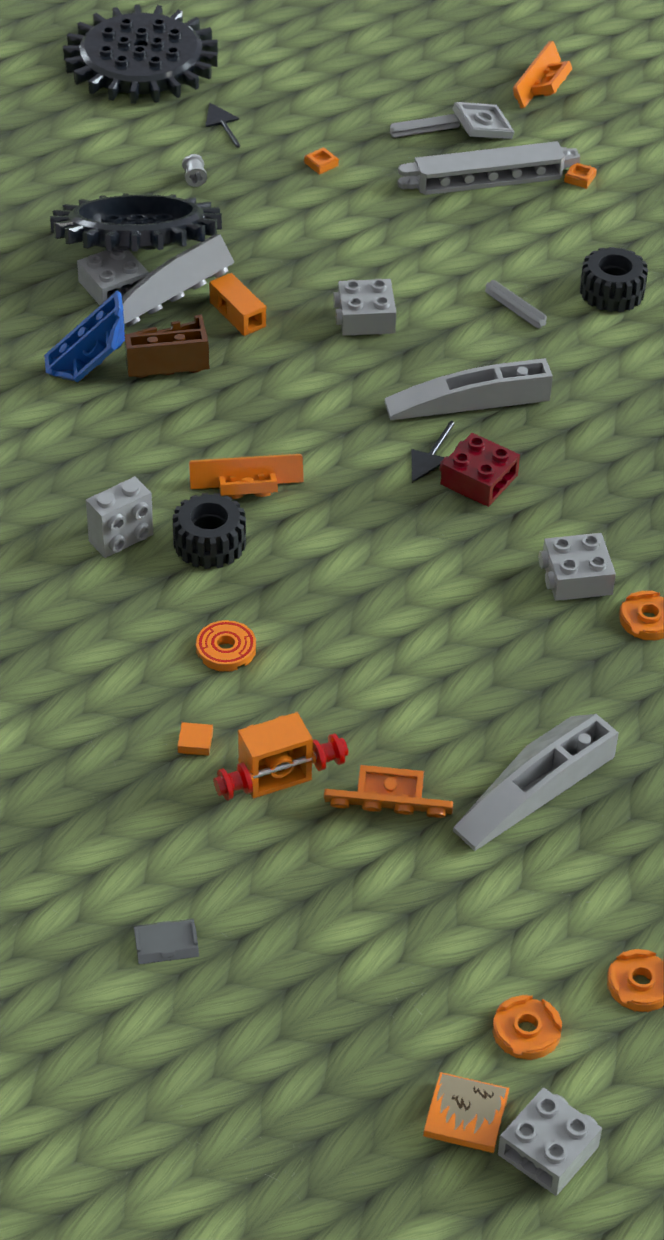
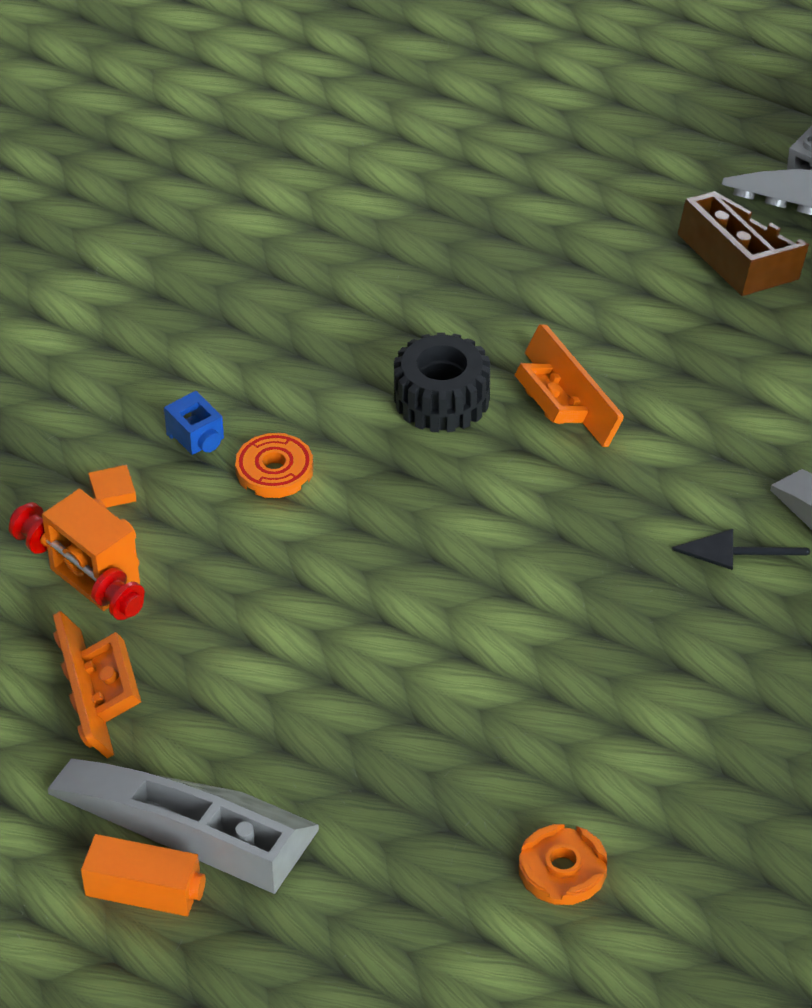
camera: 70 degrees right, 0 degrees up
(88, 342) = (689, 173): blue wedge -> none
(119, 517) = (407, 295): light grey brick -> none
(167, 671) = (198, 431): none -> blue brick
(479, 469) = (716, 597): dark red brick -> none
(576, 815) = (142, 875): none -> orange brick
(577, 566) = (591, 751): light grey brick -> none

